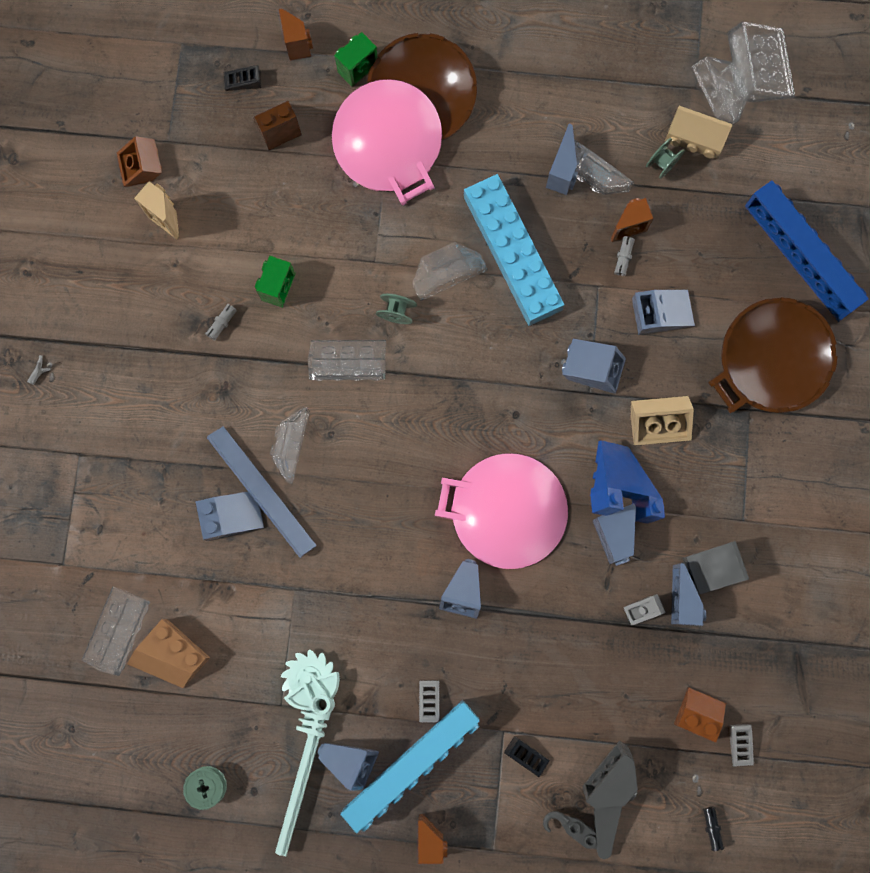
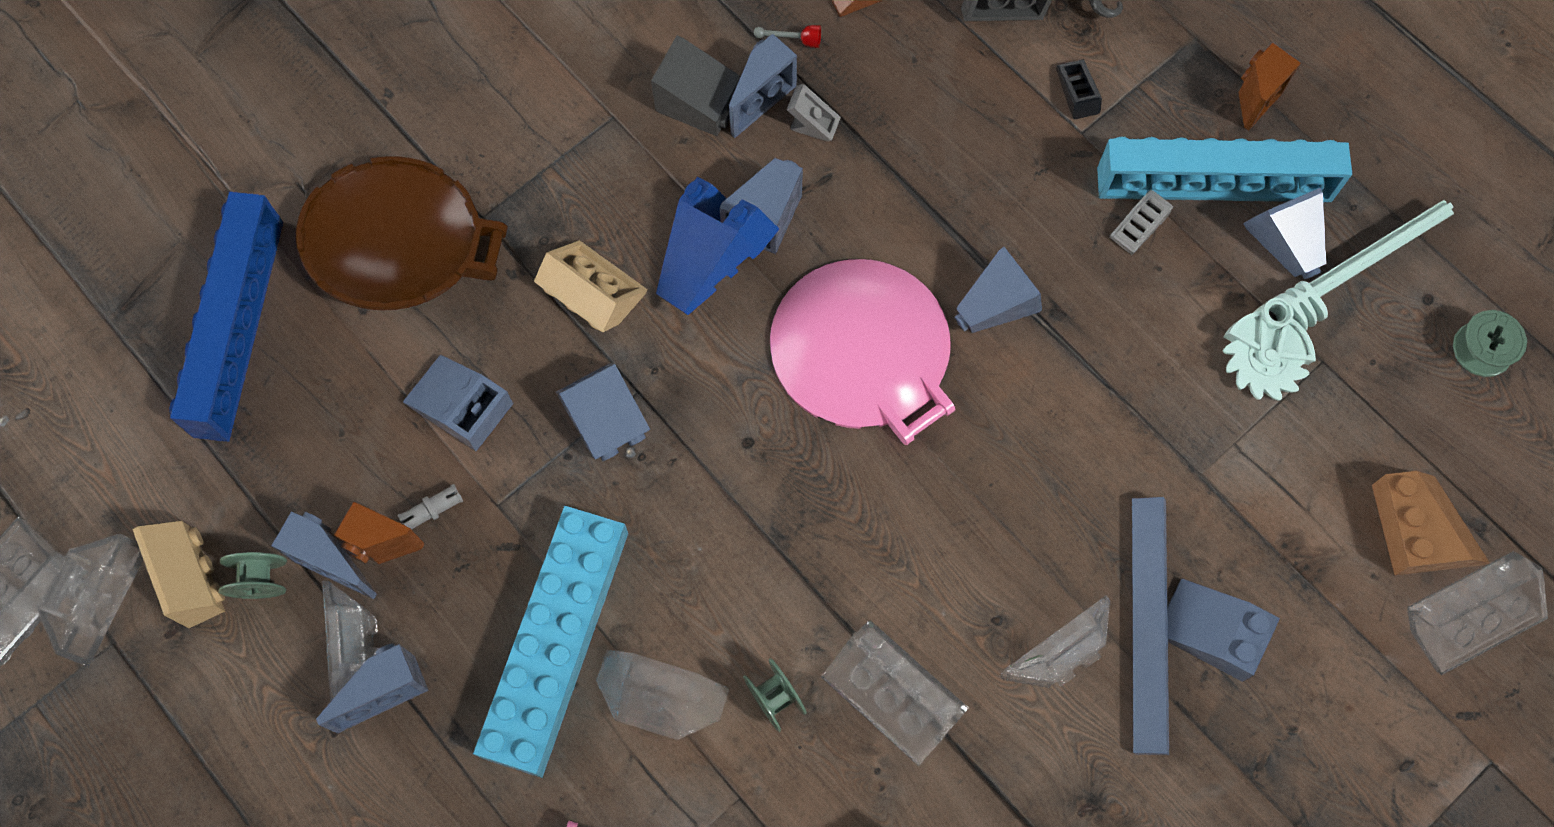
camera: 140 degrees left, 10 degrees down
(655, 188) = (312, 546): none -> sand blue slope
(690, 657) = (809, 36): none -> hinge

